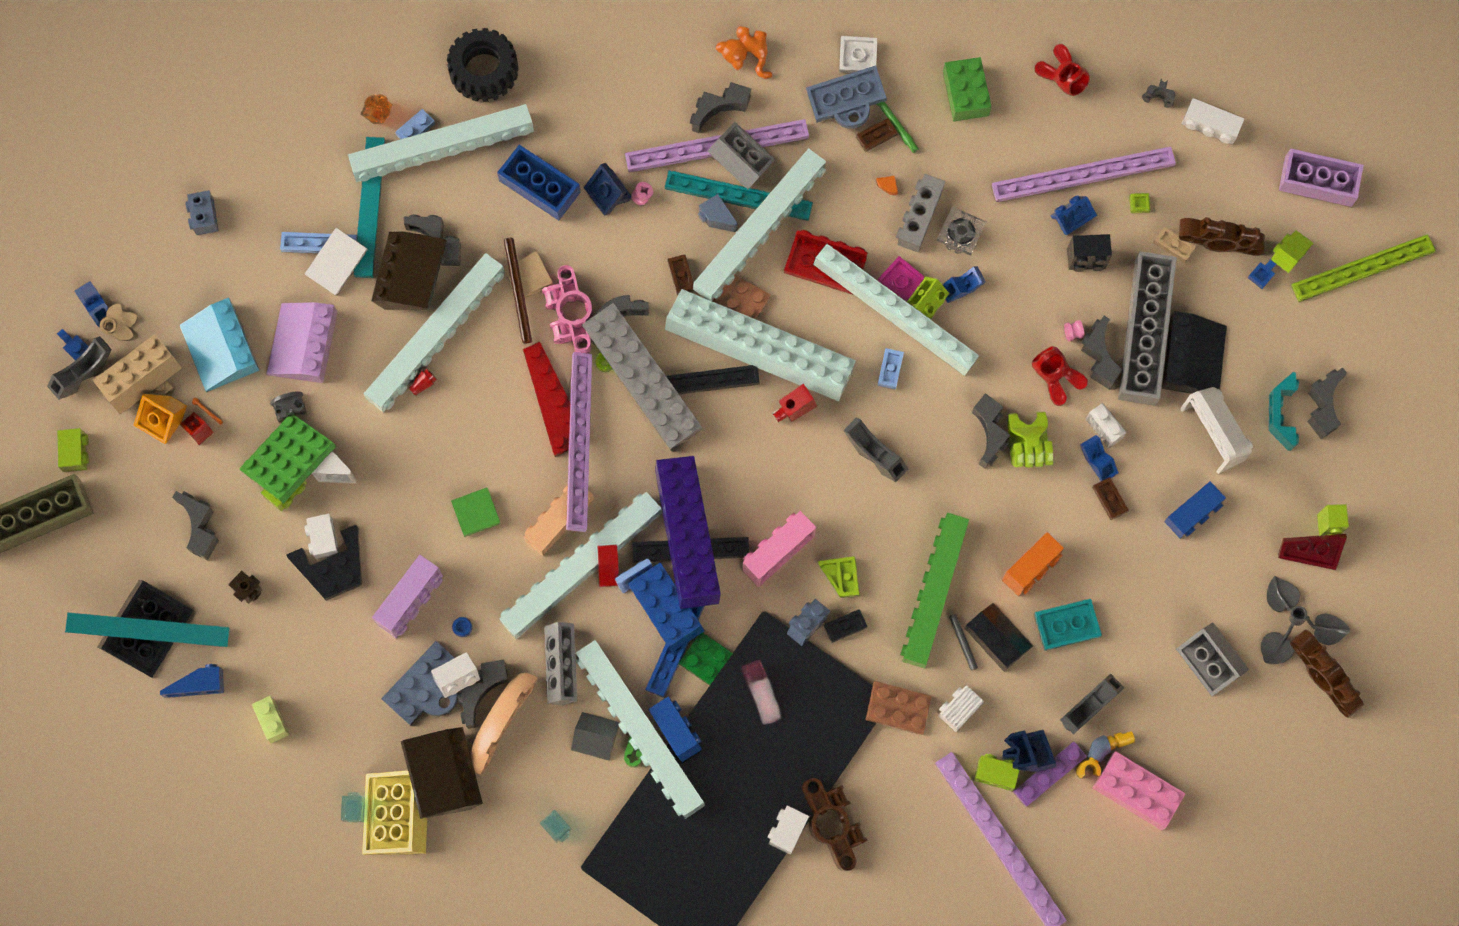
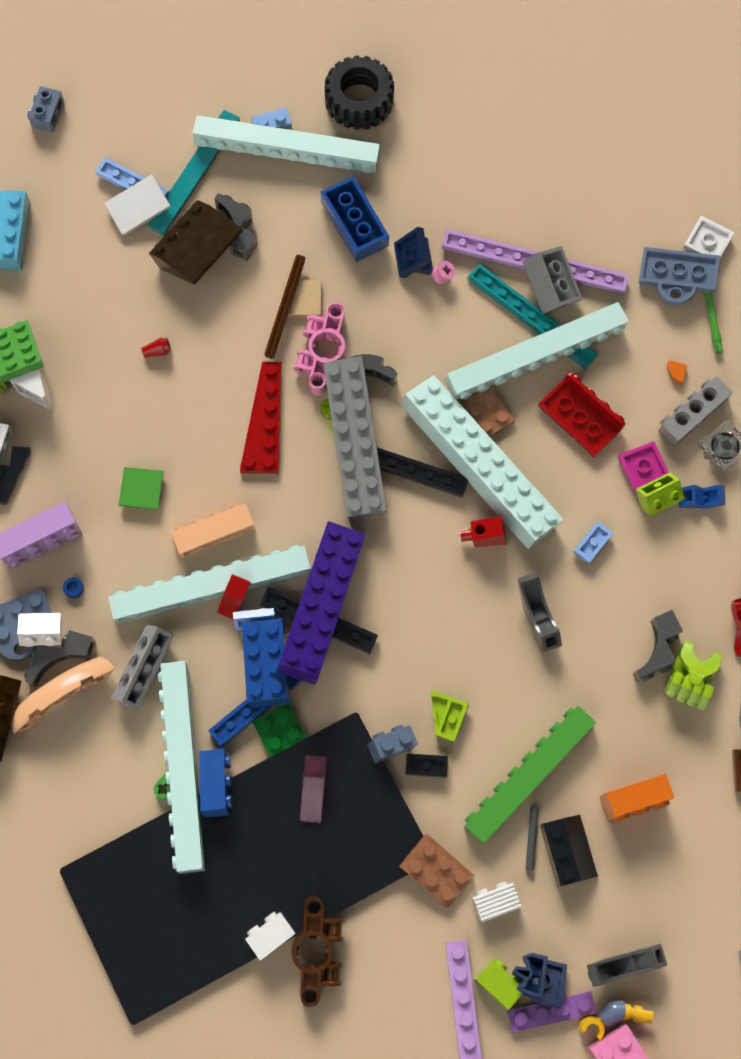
camera: 25 degrees right, 0 degrees up
(288, 405) = (29, 312): dark grey piece -> none
(302, 341) = (72, 262): lavender slope -> none
(376, 108) = (245, 88): clear orange brick -> none
(434, 333) = (191, 309): light aqua brick -> none
(556, 827) = (57, 818): clear light blue brick -> none
(579, 442) = (266, 471): lavender plate -> none
(594, 736) = (139, 750): dark grey slope -> none
(680, 273) = (441, 361): reddish brown plate -> none
(717, 215) = (502, 323): sand blue slope -> none
(734, 98) = (573, 226): dark grey arch -> none
(736, 50) = (596, 184): orange animal -> none
(779, 548) = (400, 660): bright pink brick -> none
(876, 134) = (689, 320): reddish brown plate -> none
(895, 309) = (625, 490): light aqua brick -> none
(1067, 624) = (642, 873): teal plate -> none

